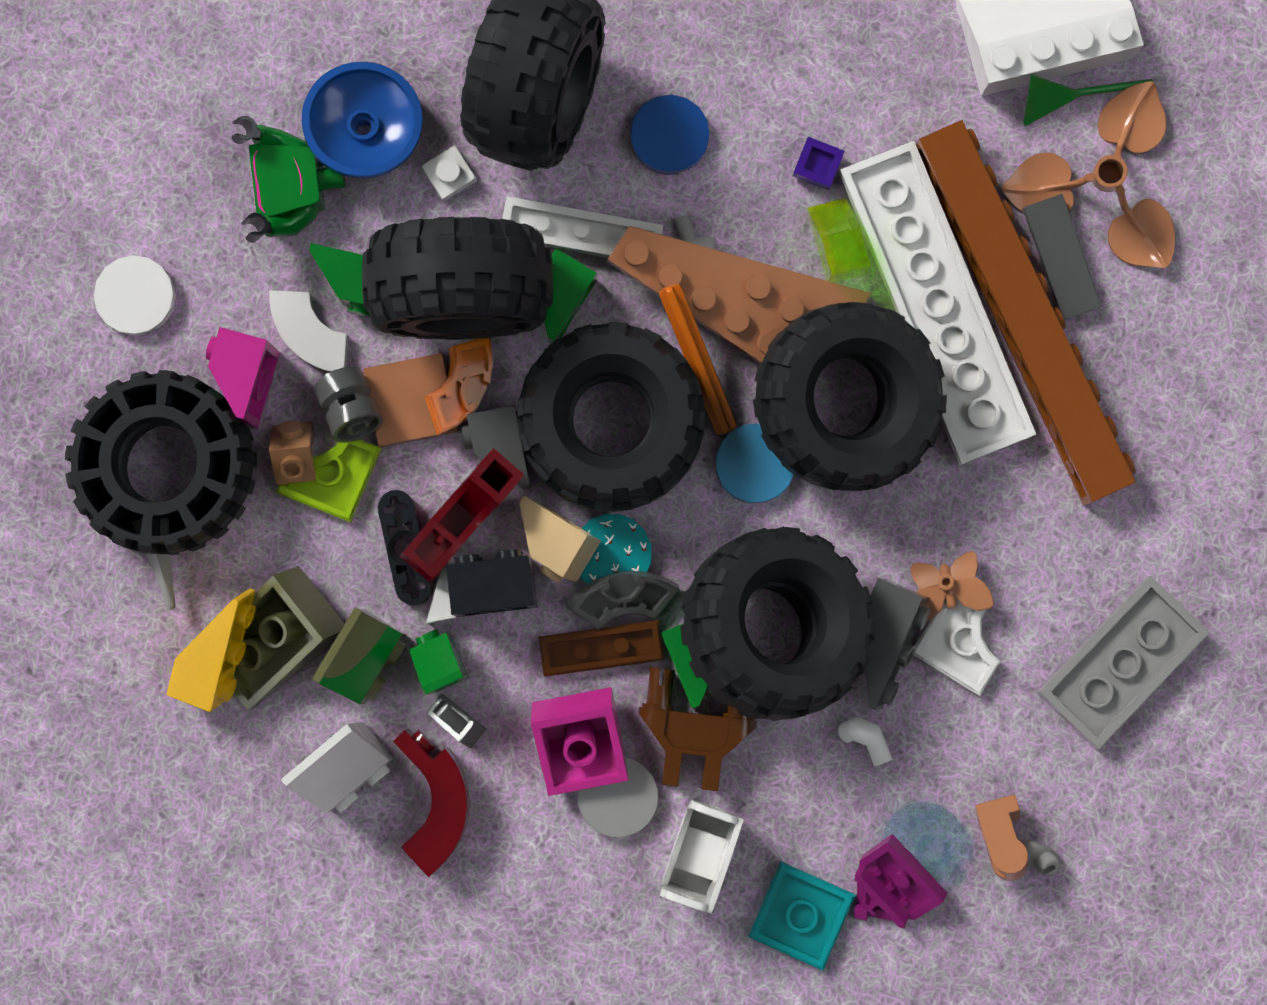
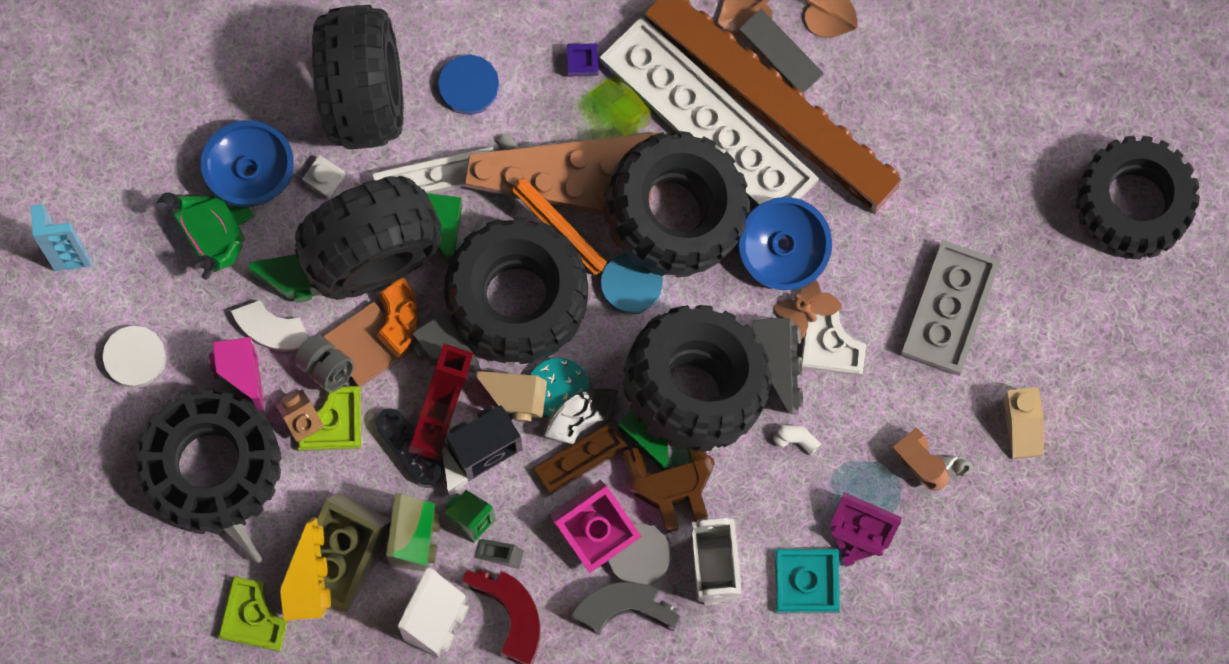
camera: 25 degrees left, 10 degrees down
(86, 117) = (58, 241): none -> medium azure fence
(134, 668) = (249, 618): none -> lime tile
(574, 842) = (621, 599): none -> dark grey arch
(964, 527) = (808, 243): none -> blue dish
(1147, 843) = (1024, 422): none -> tan slope

